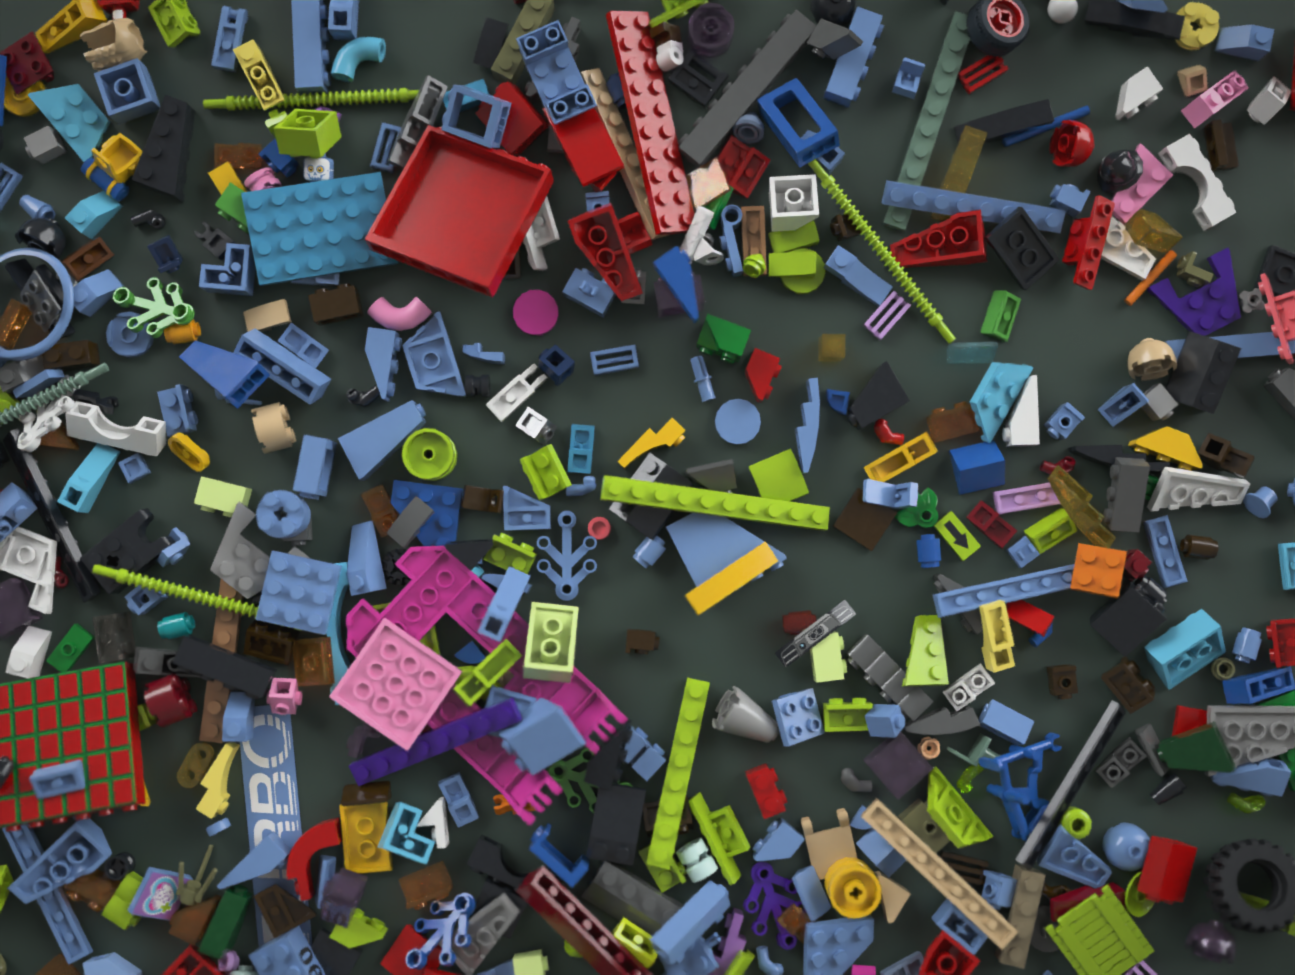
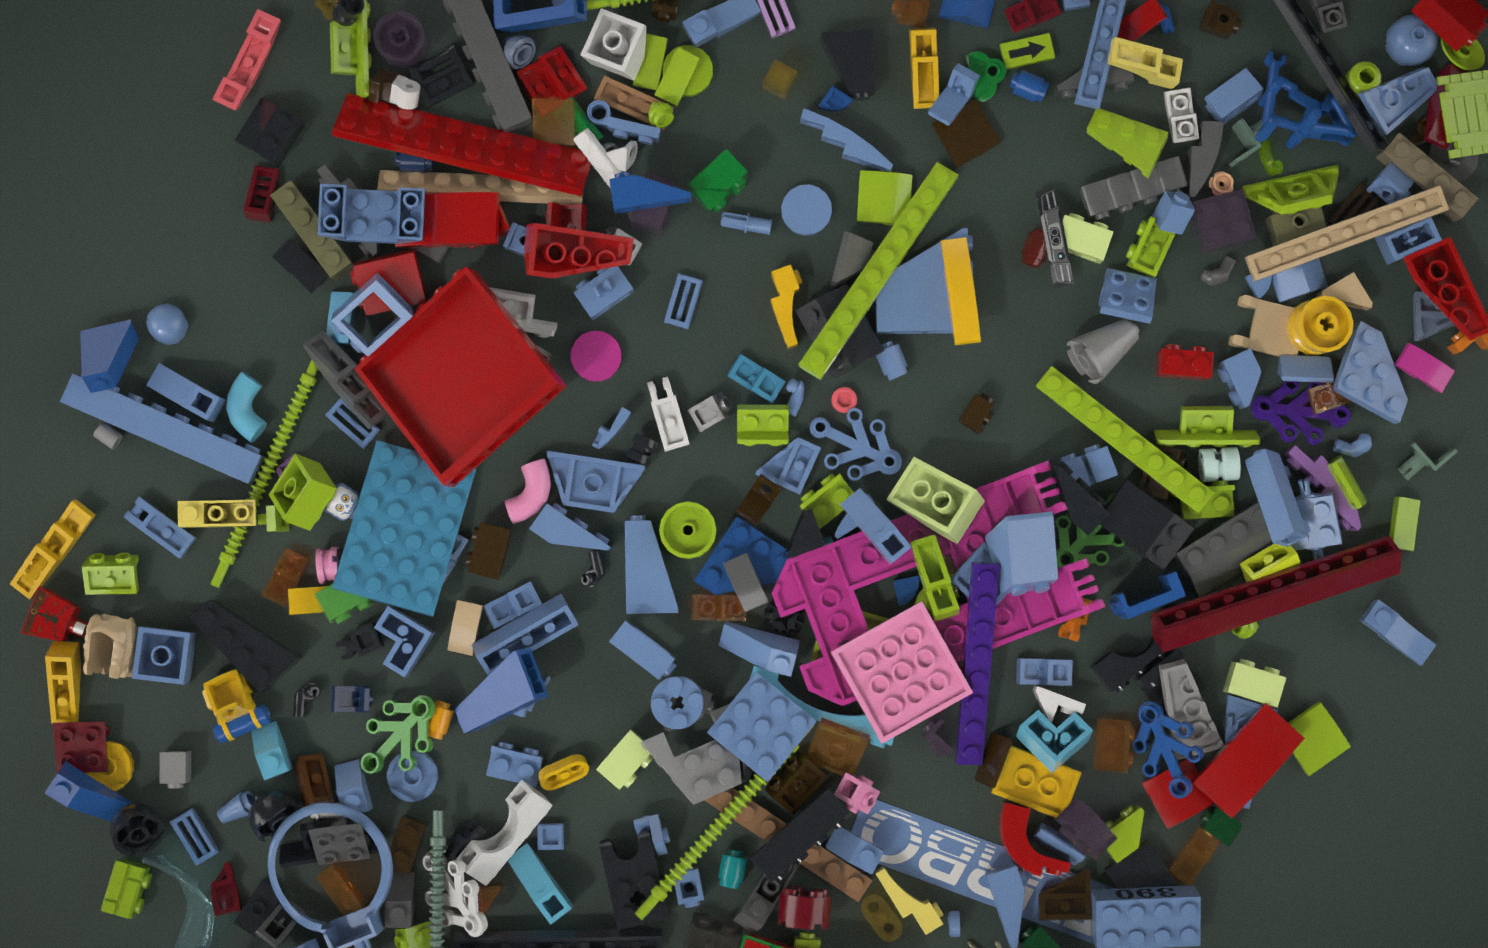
camera: 65 degrees left, 0 degrees up
(38, 383) = (418, 889): medium blue tile -> none
(73, 116) = (161, 724): medium azure wing -> none
(272, 427) = (582, 673): tan brick -> none
(277, 161) = (312, 539): blue brick -> none
(557, 357) = (664, 353): dark blue brick -> none
(760, 371) = (769, 163): red slope -> none
(886, 435) = (892, 70): red arm -> none

